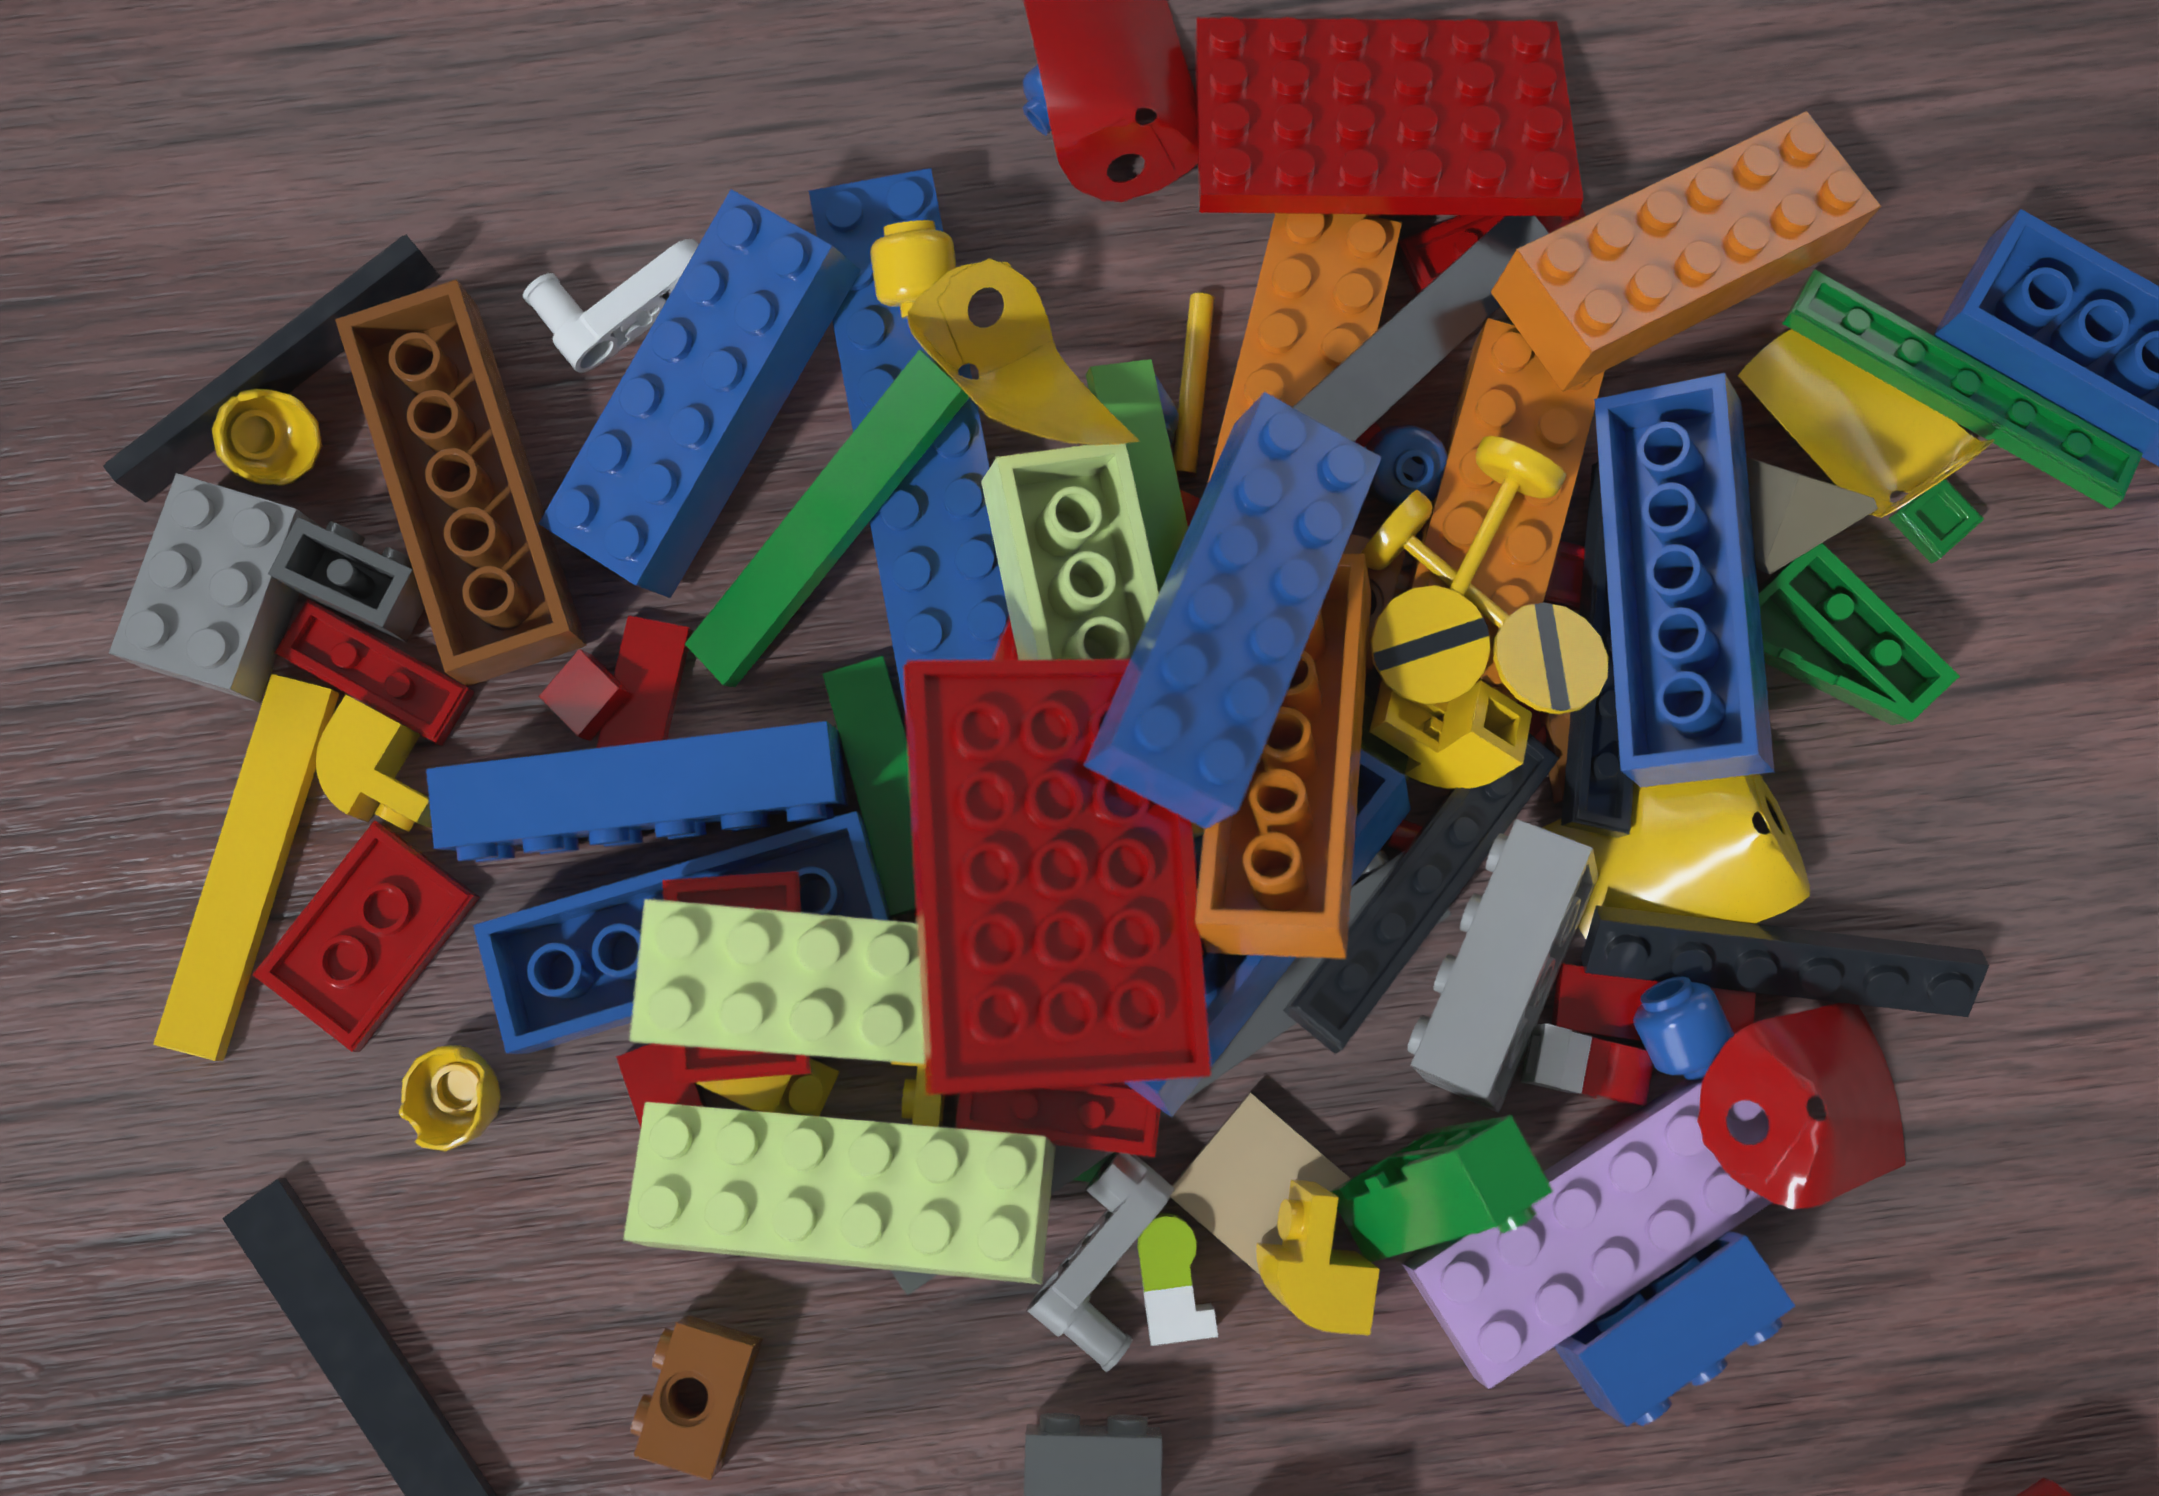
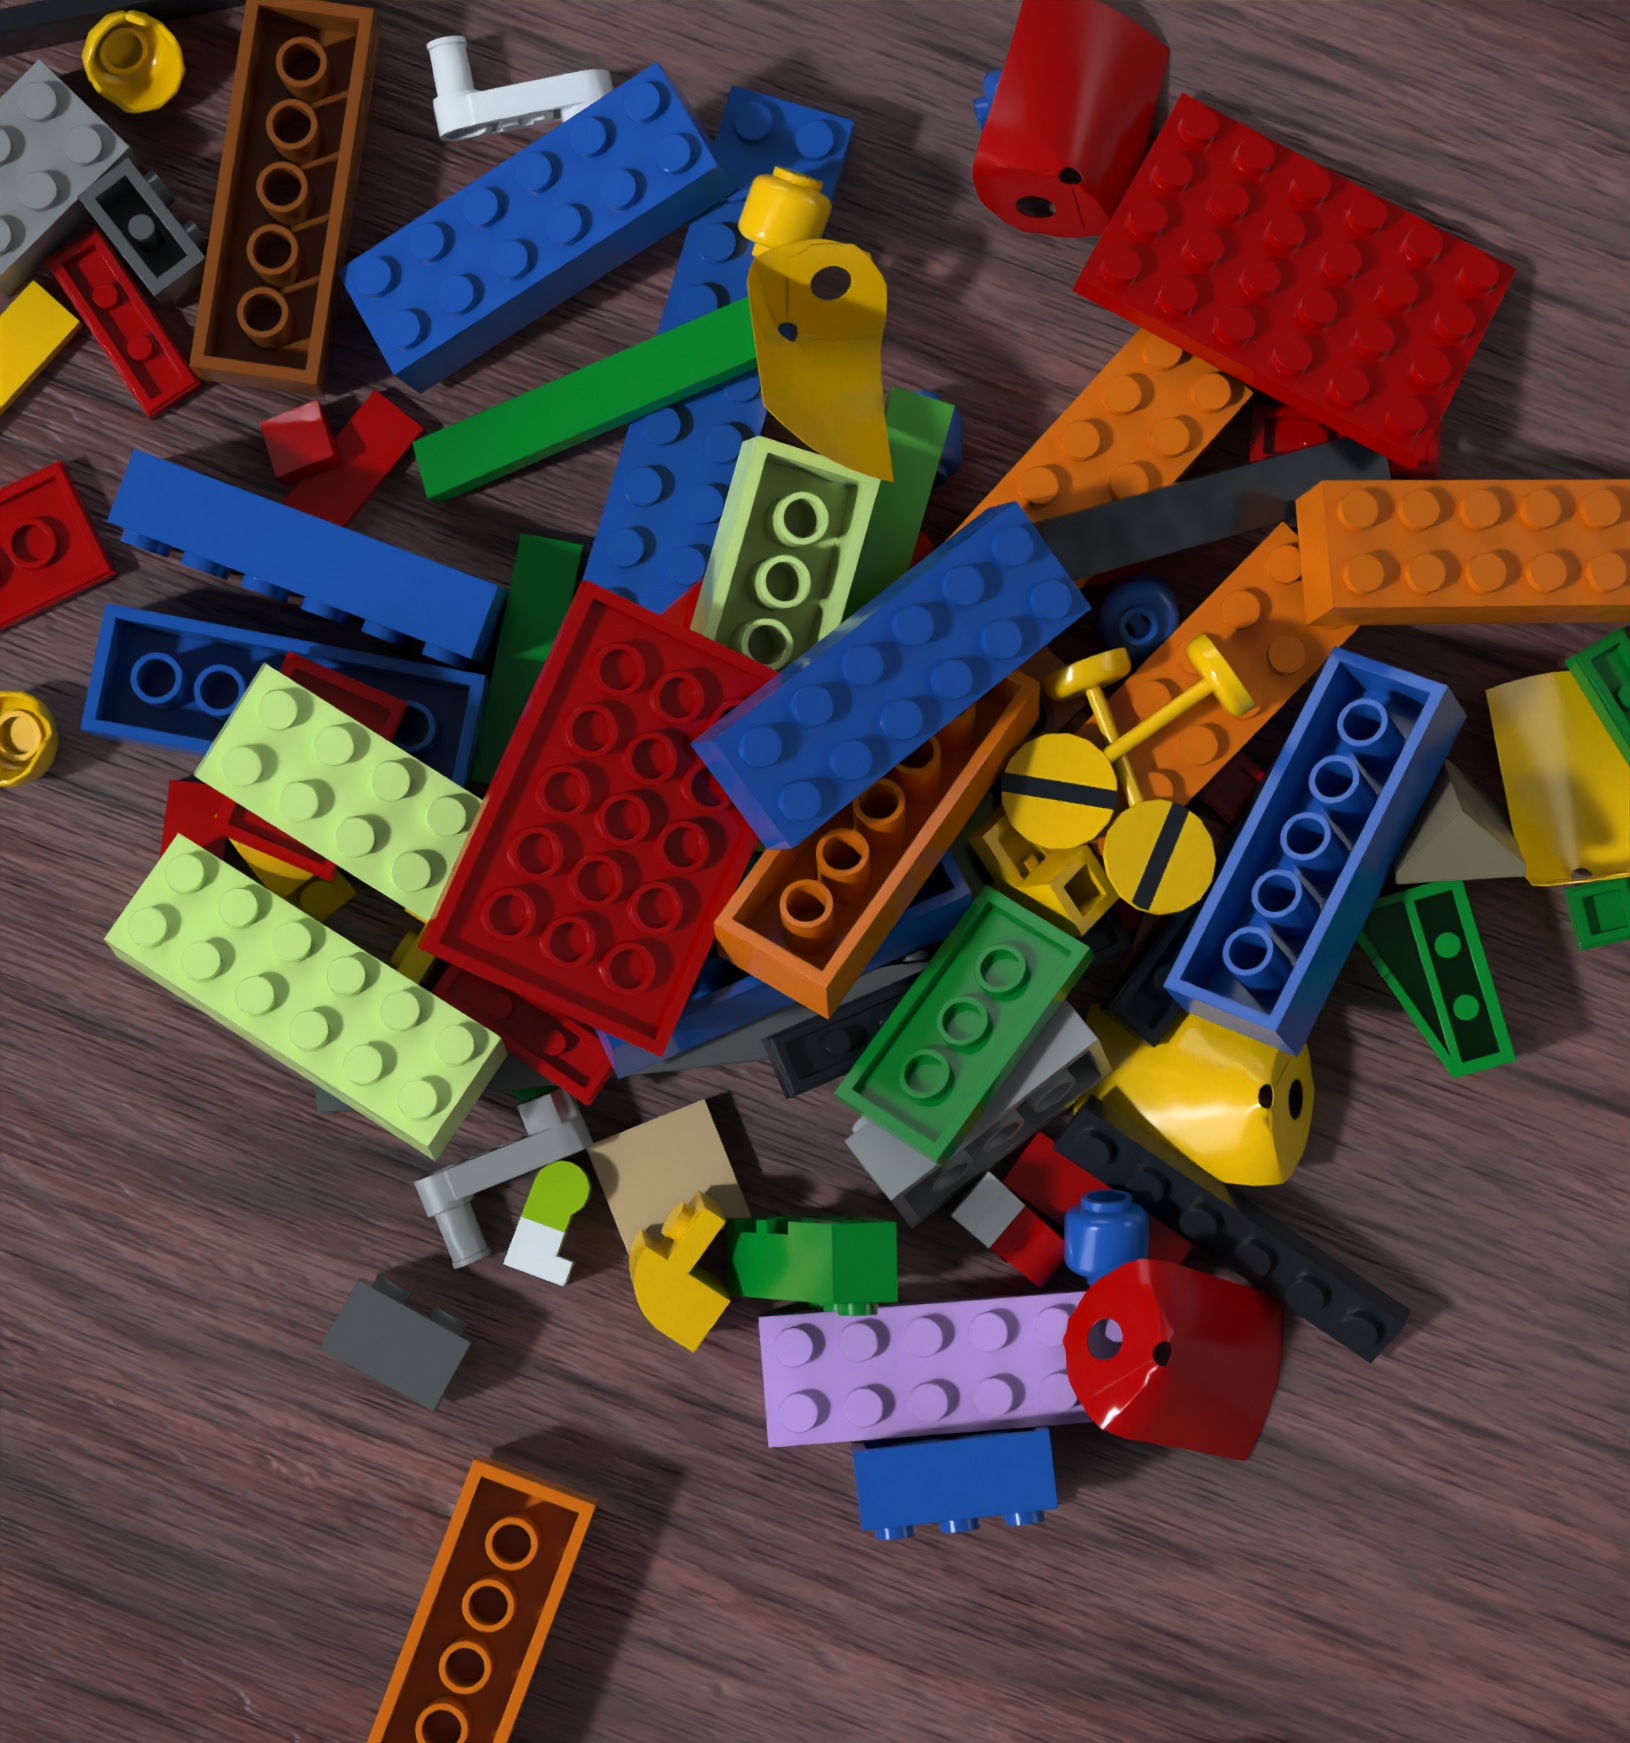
camera: 25 degrees right, 5 degrees up
(359, 766) = (72, 402): yellow brick -> none
(688, 1438) = (132, 1092): dark orange brick -> none
(1193, 384) = (993, 439): yellow bar -> none
(1465, 901) = (964, 1025): none -> green plate

